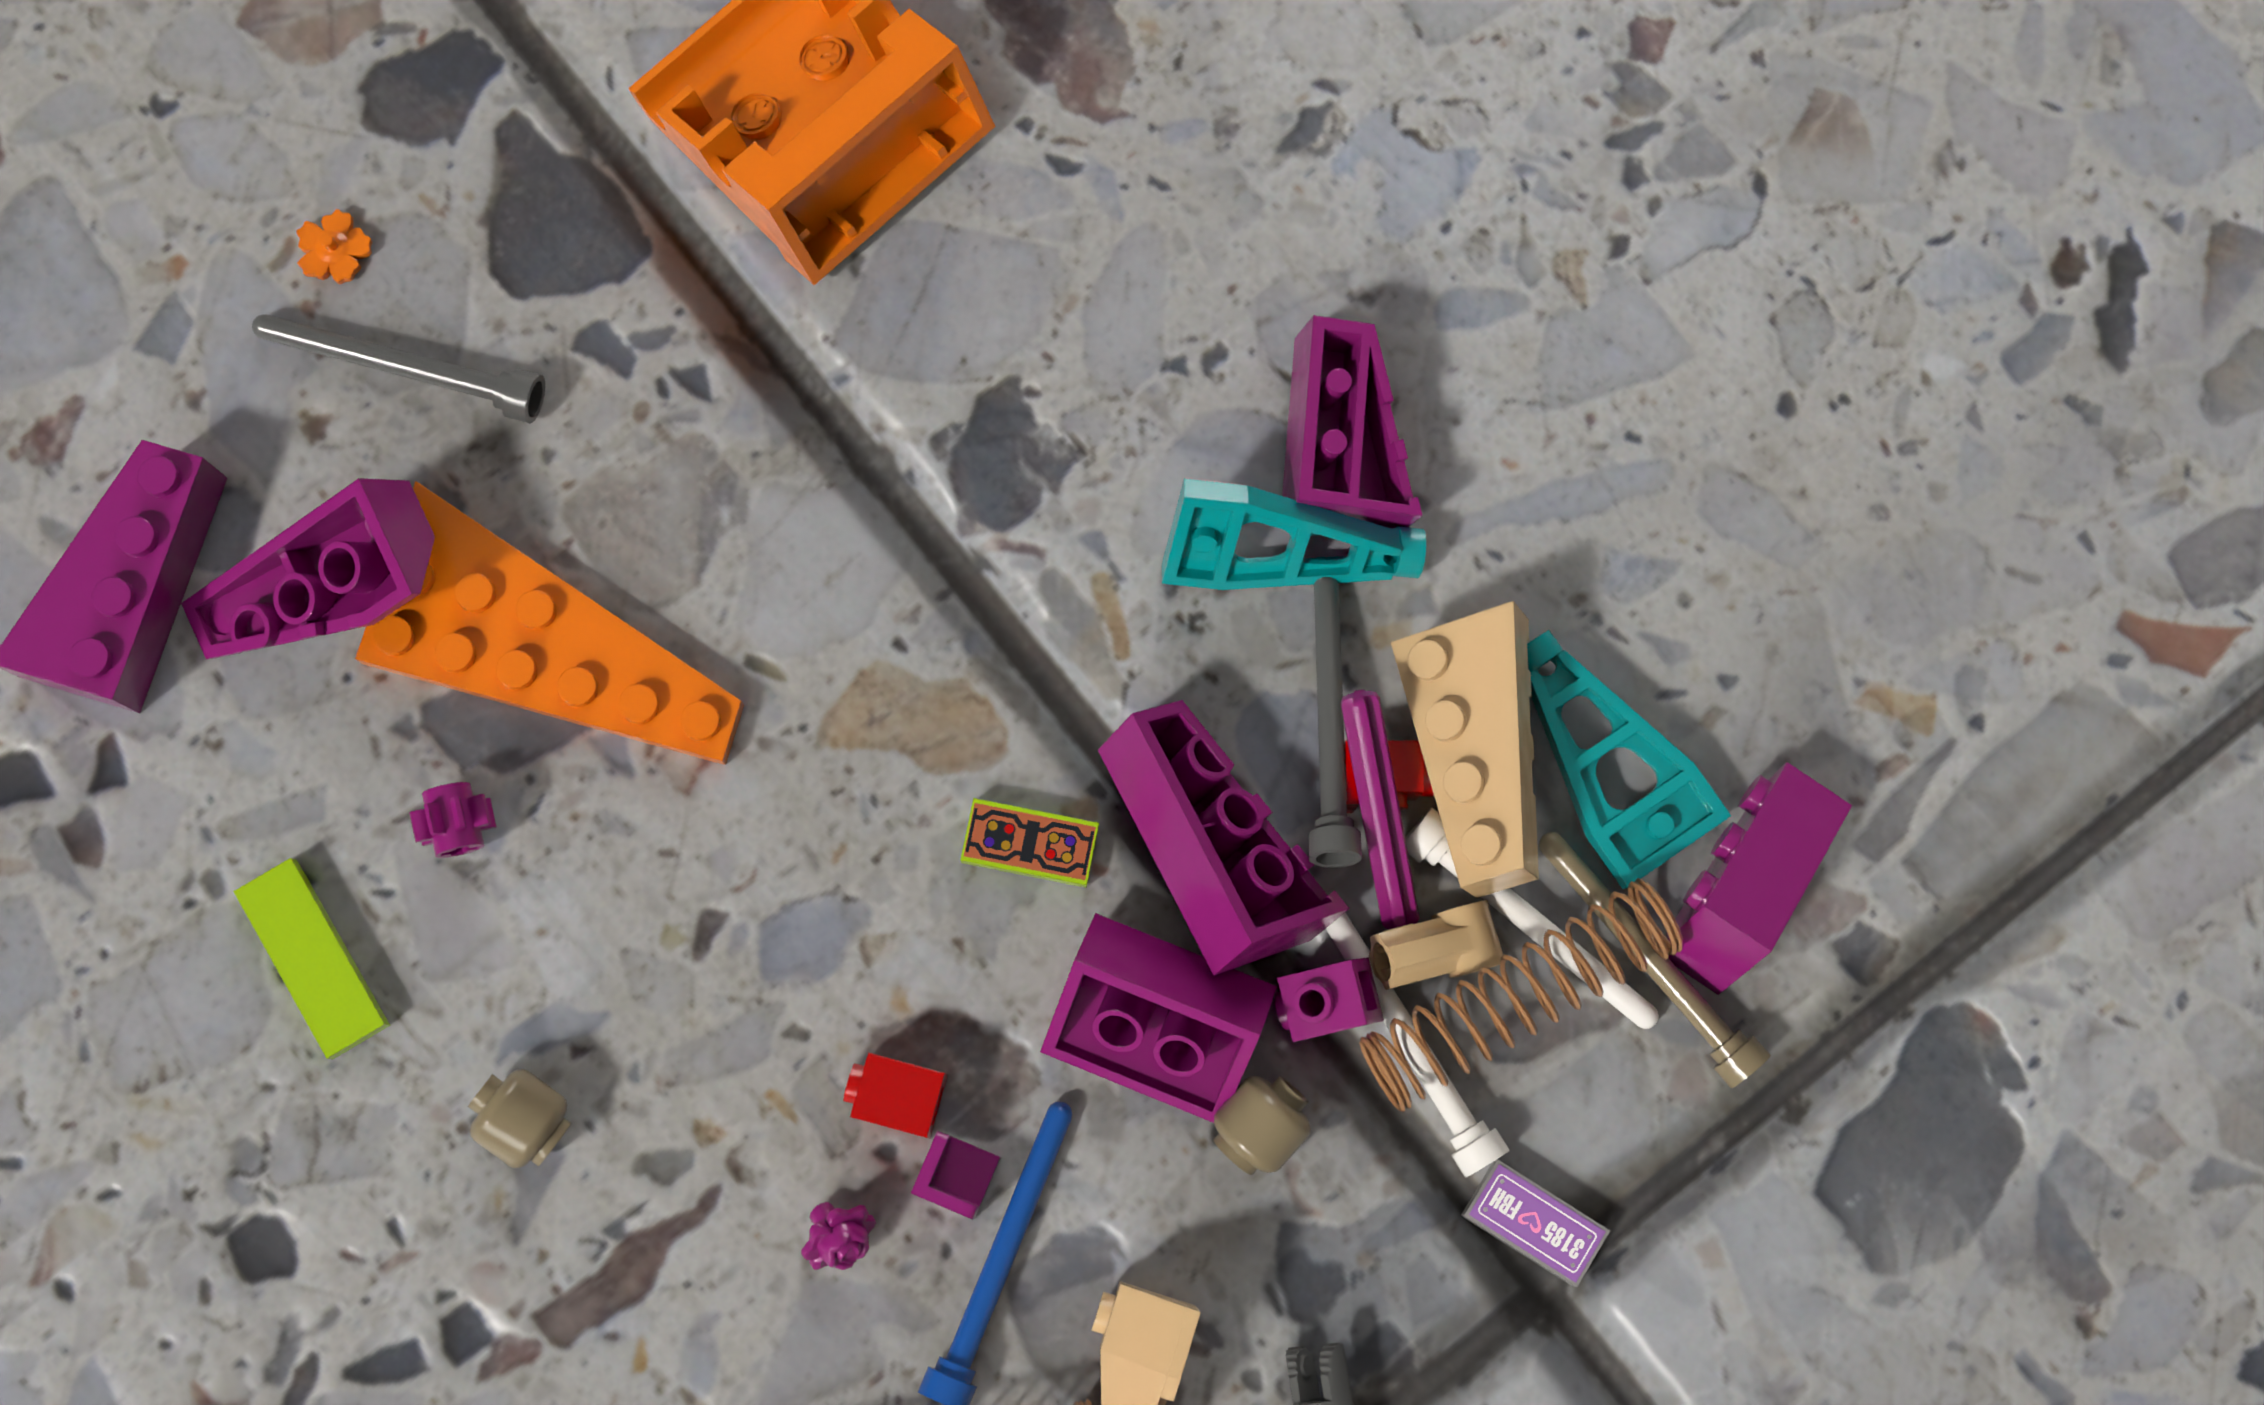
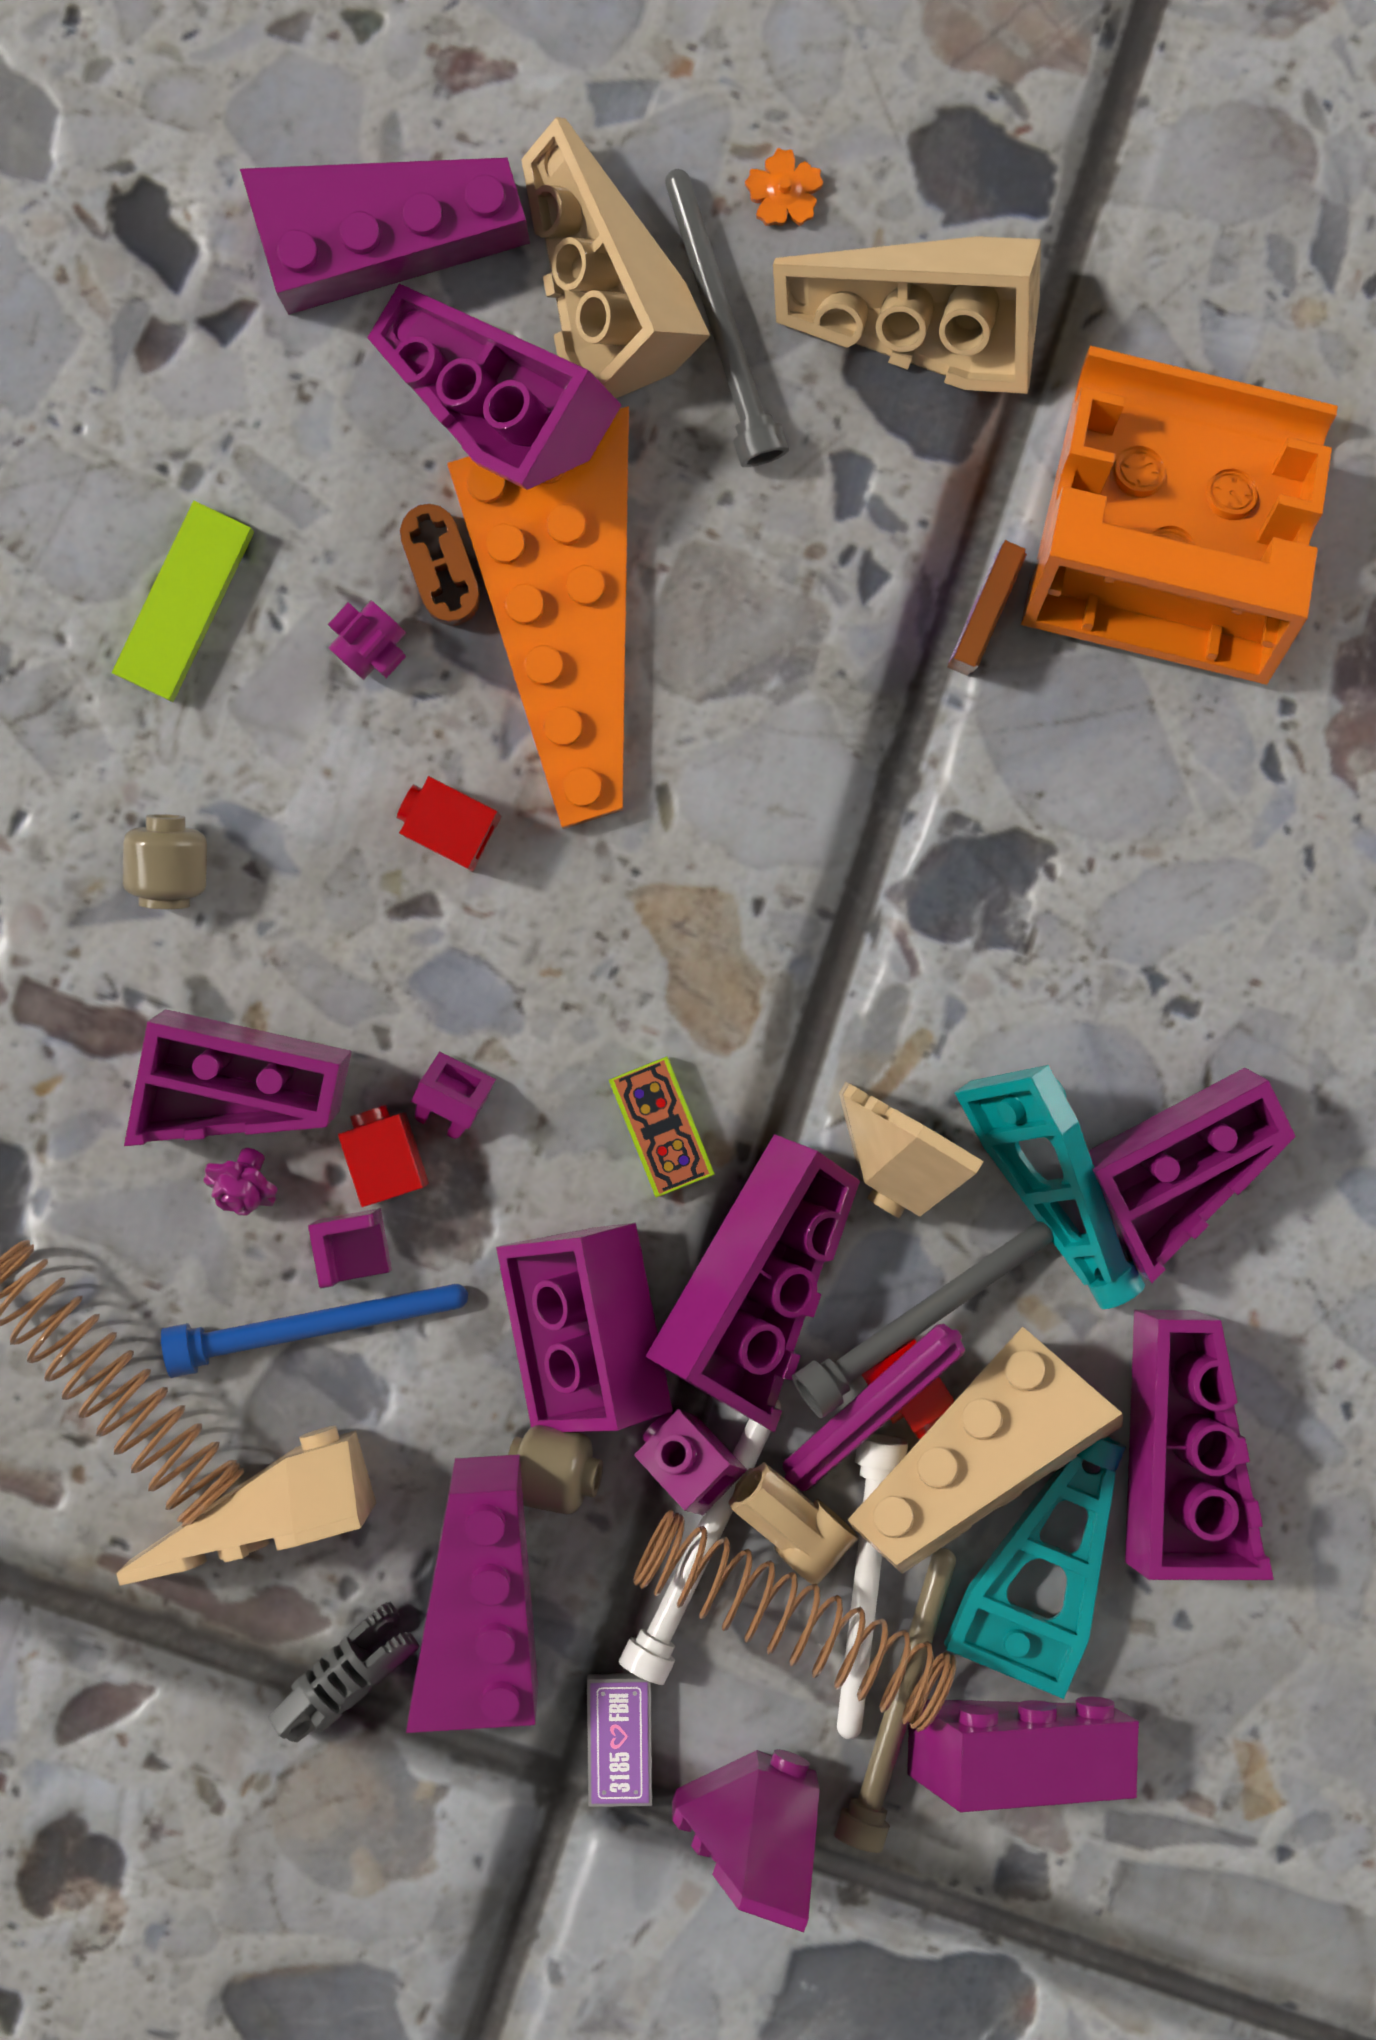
camera: 65 degrees right, 10 degrees up
(289, 426) = (614, 287): none -> tan wedge
(432, 734) = (426, 569): none -> dark orange beam
(507, 191) = (930, 304): none -> tan wedge
(652, 853) = (447, 822): none -> red brick
(741, 1183) = (230, 1079): none -> magenta wedge
(782, 301) = (987, 608): none -> dark orange tile
(881, 998) = (452, 1092): none -> magenta tile
(1181, 642) = (901, 1157): none -> tan wedge
(1349, 1271) = (479, 1620): none -> magenta wedge
(1586, 581) = (1187, 1460): none -> magenta wedge
(1681, 1136) = (759, 1830): none -> magenta wedge

